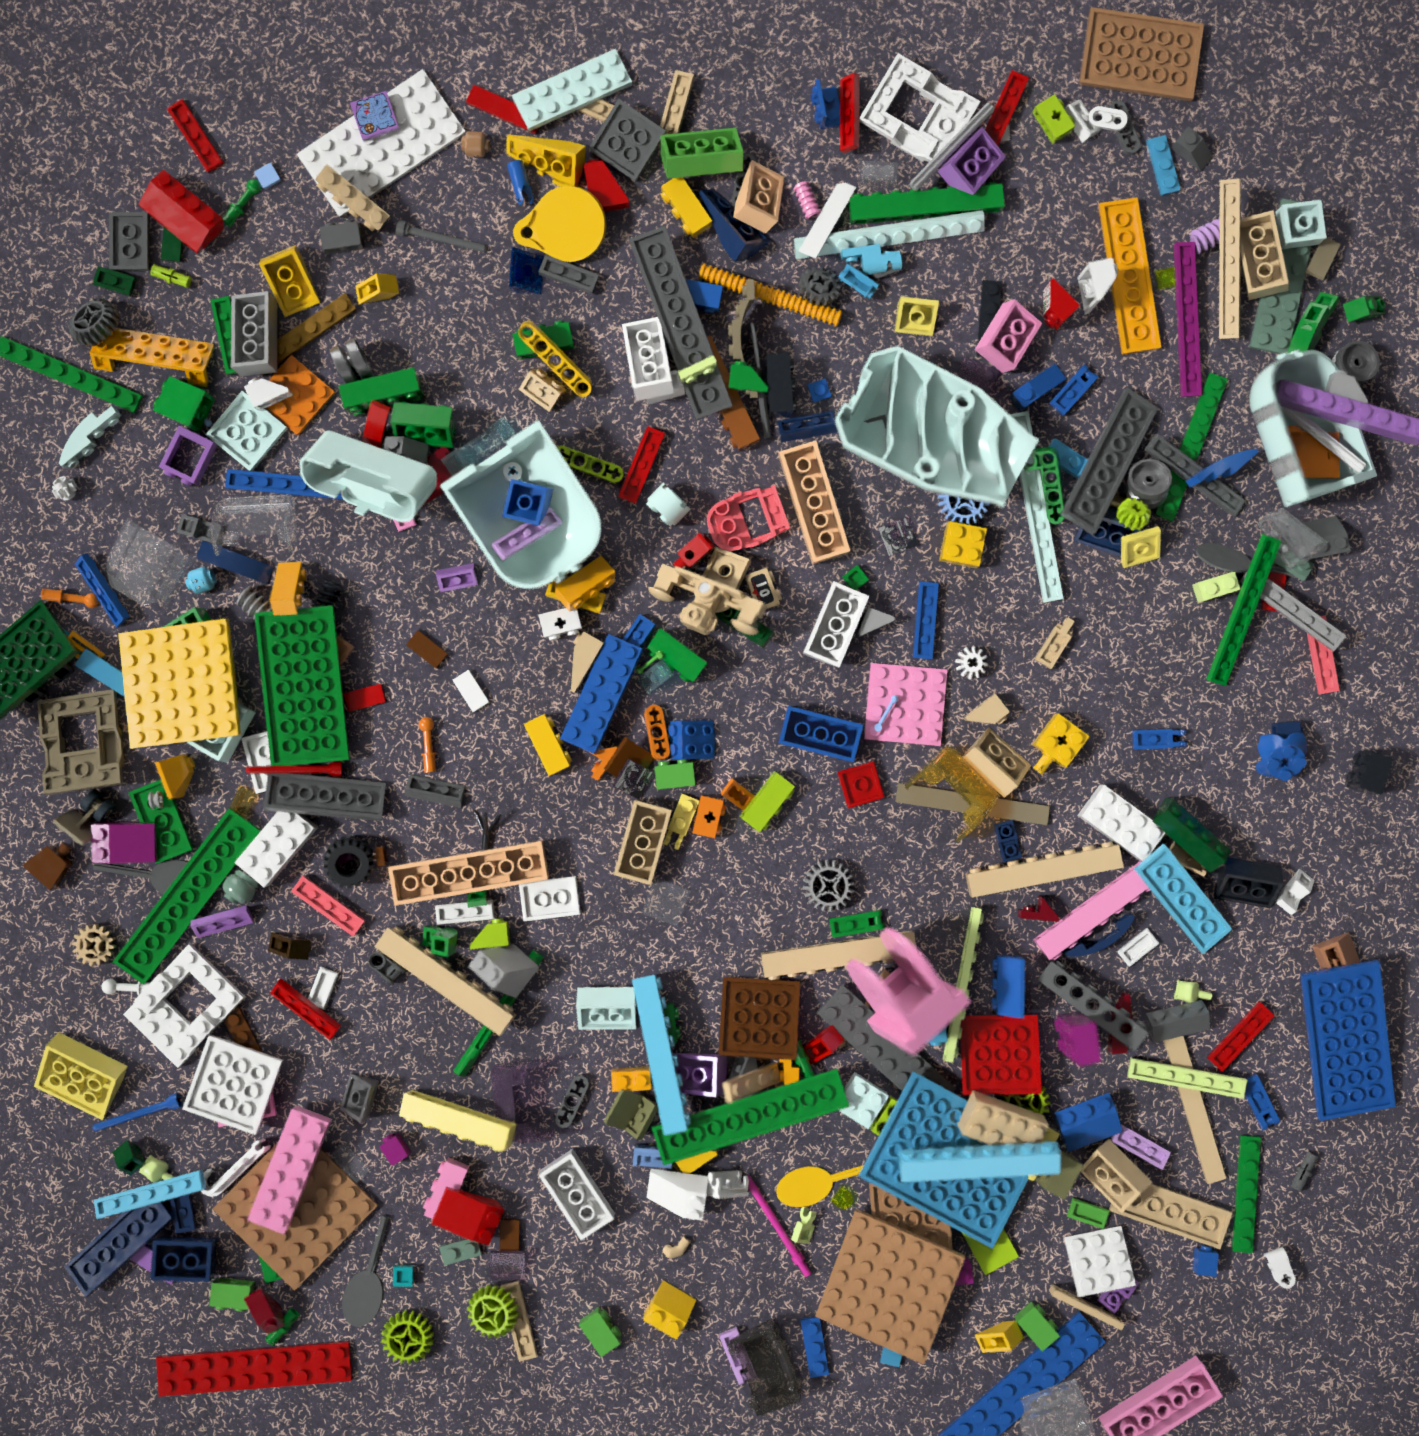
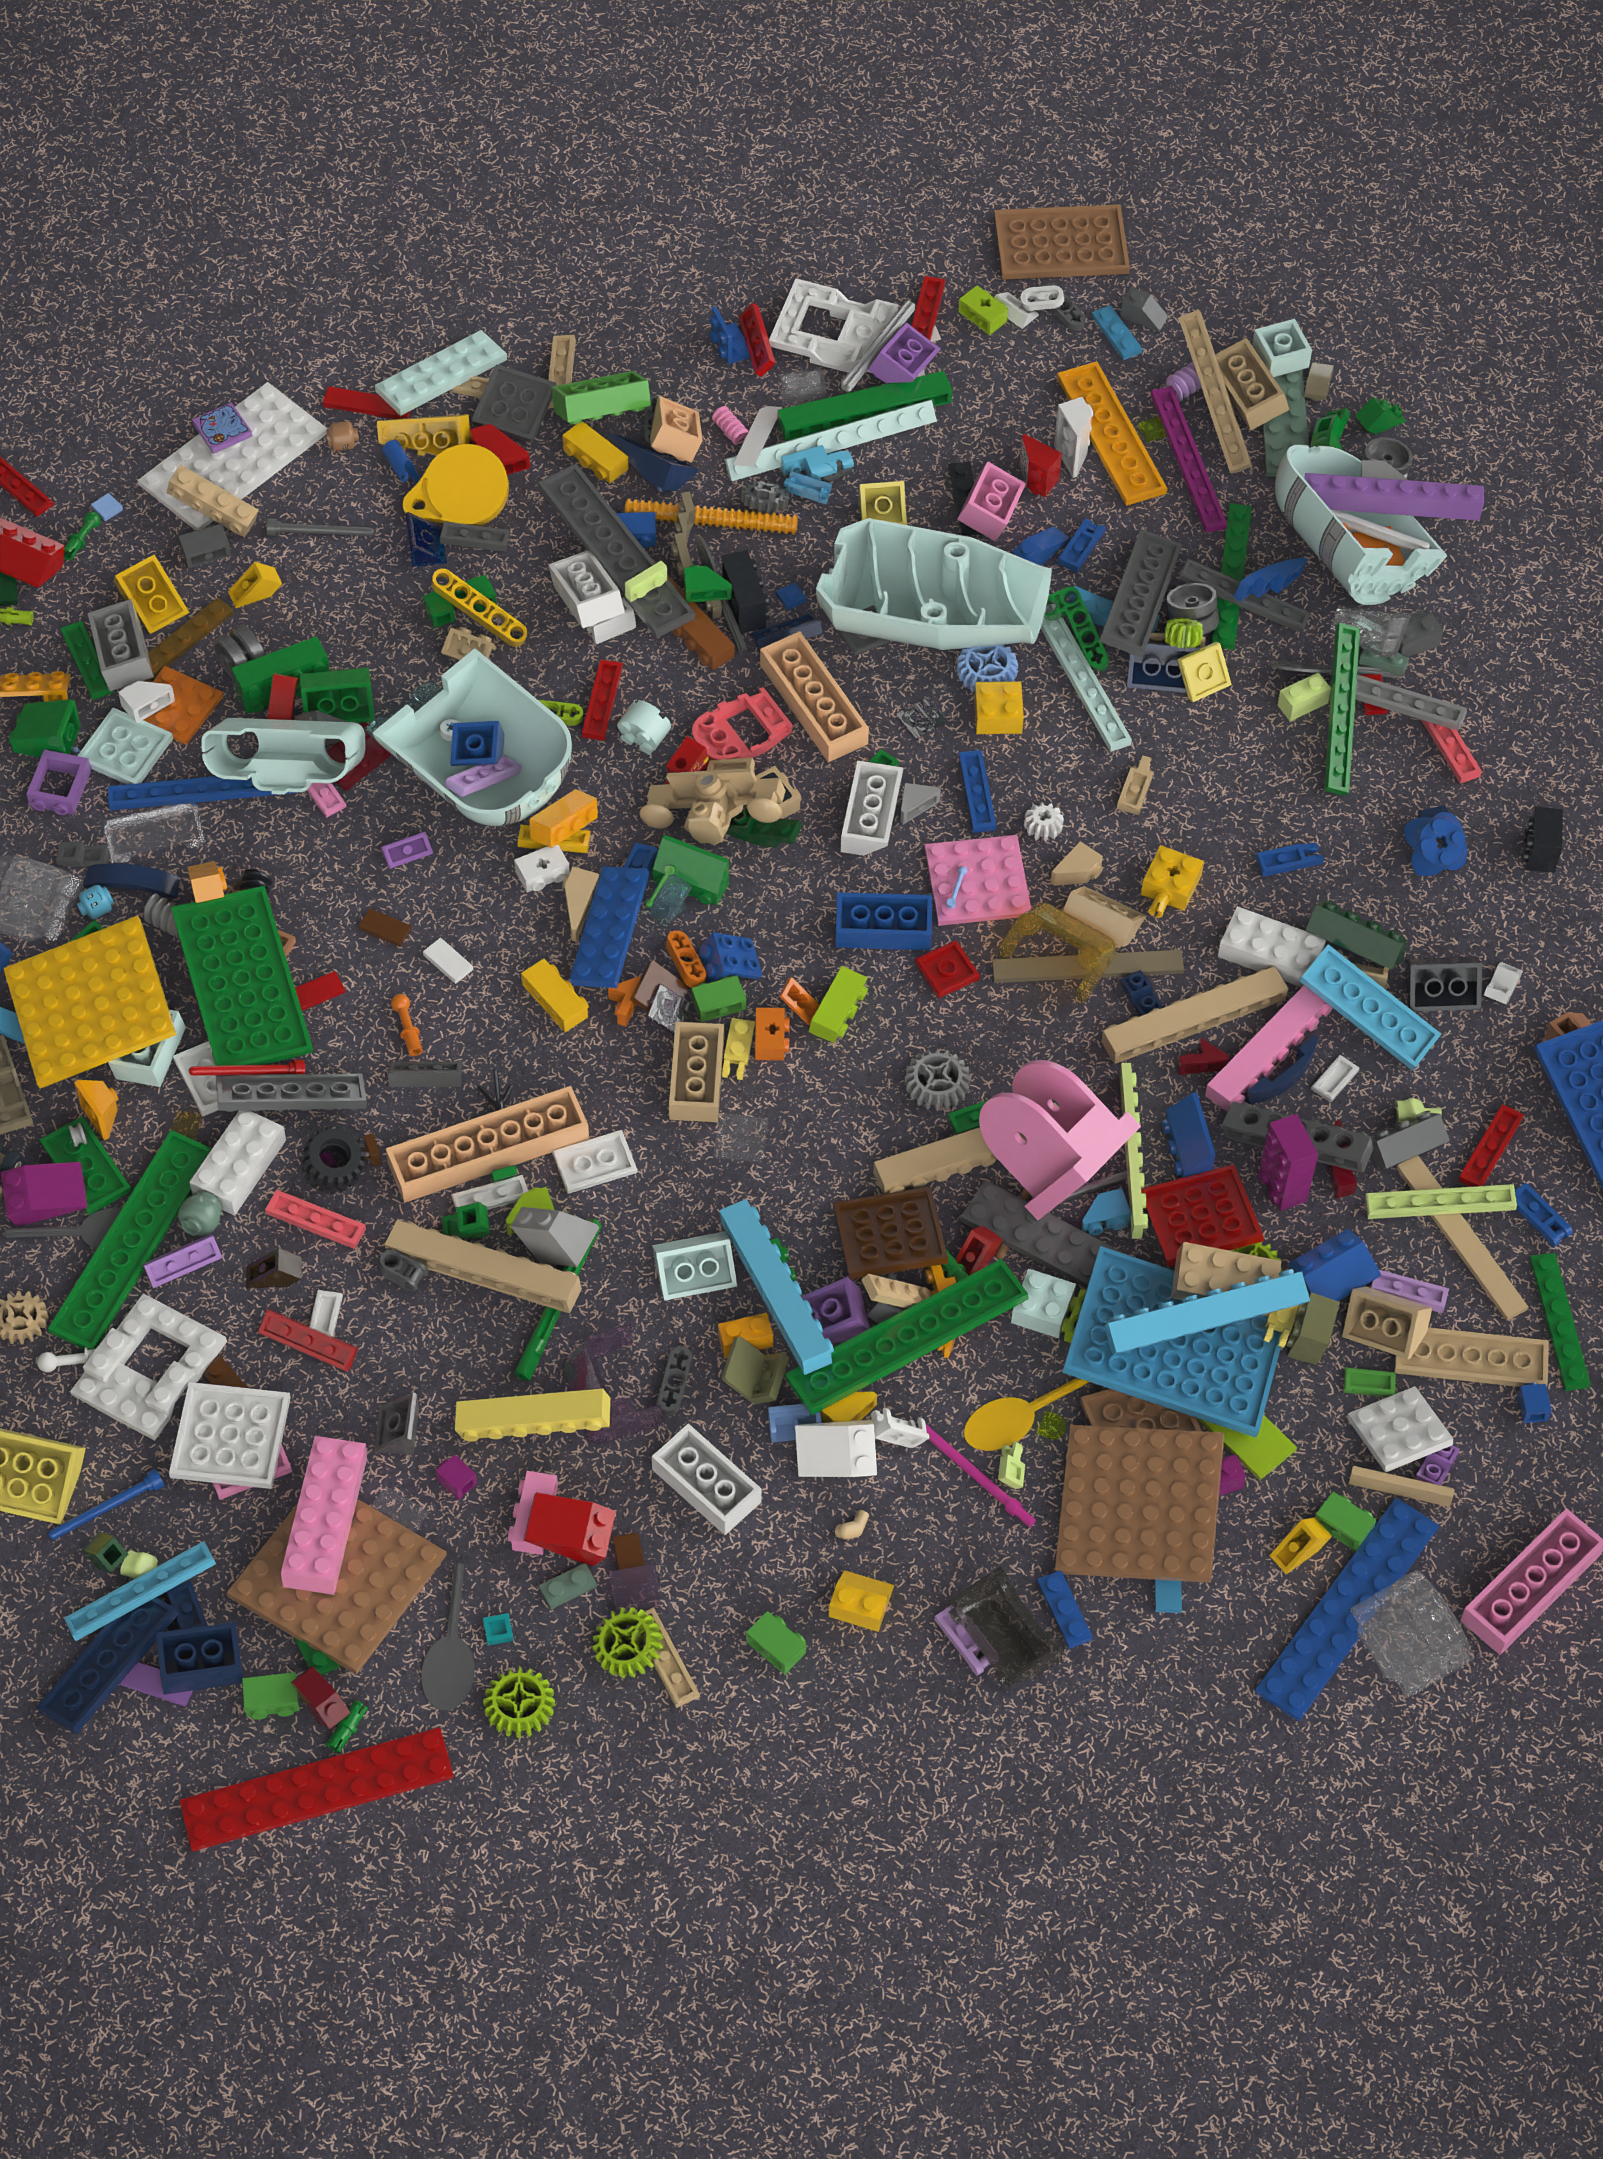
camera: 10 degrees left, 30 degrees down
(236, 1170) = (248, 1546): white piece -> none

